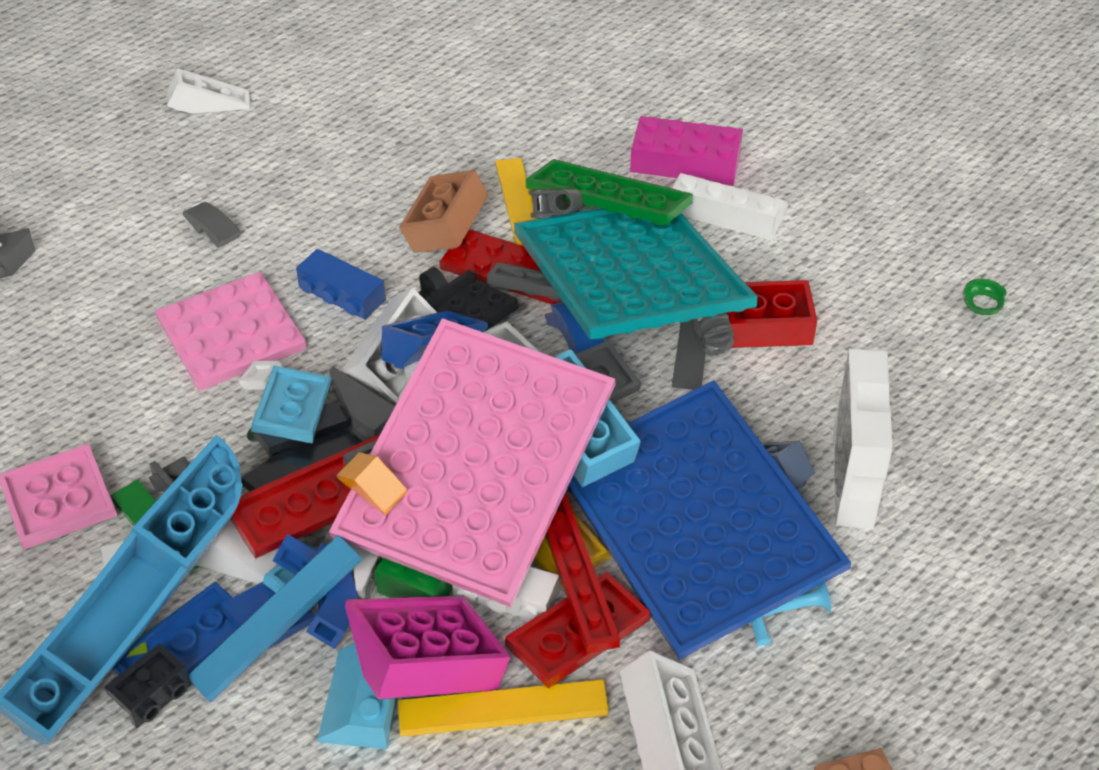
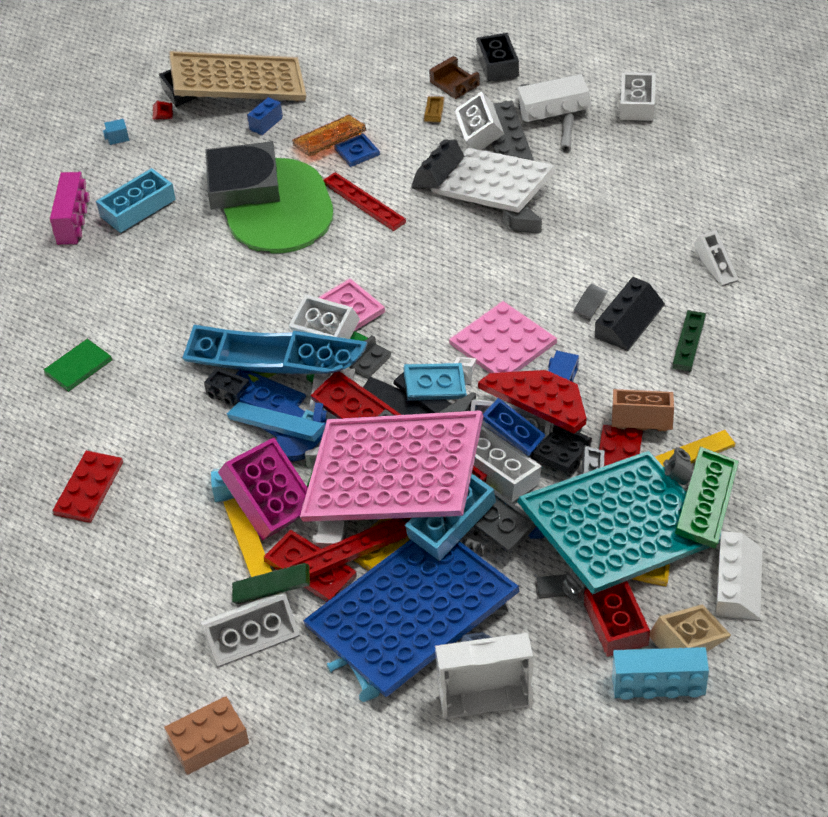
camera: 80 degrees right, 0 degrees up
(92, 513) = (324, 318): none -> white brick
(256, 195) = (629, 314): none -> black slope
(334, 153) = (689, 341): none -> dark green plate
(372, 481) = (356, 422): light orange slope -> none
(386, 290) = (539, 394): none -> red plate
(611, 676) = (271, 583): none -> dark green tile
(688, 148) = (784, 538): dark pink brick -> none
(805, 259) = (688, 629): none -> tan slope
(867, 292) = (660, 673): none -> medium azure brick
(984, 287) = (705, 754): green piece -> none

